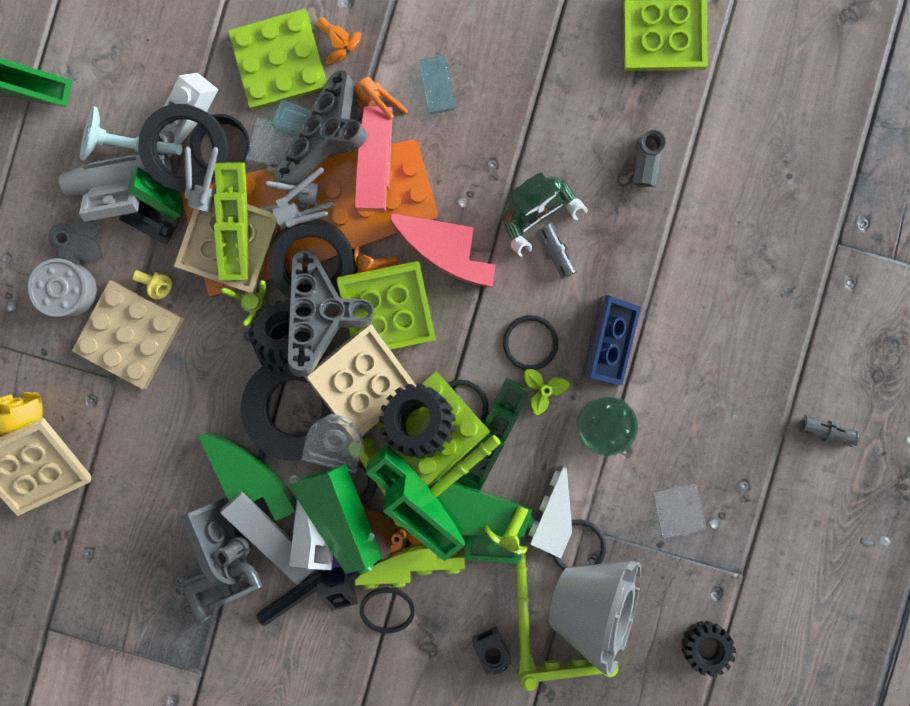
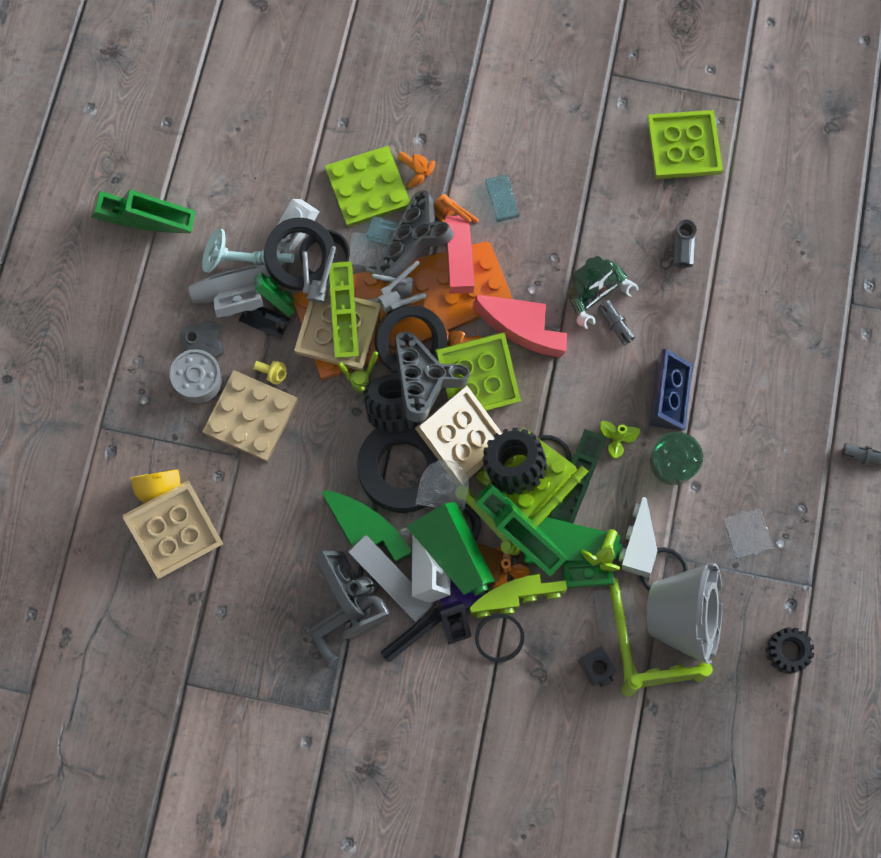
camera: 10 degrees left, 15 degrees down
(530, 318) = (610, 381): black piece -> none

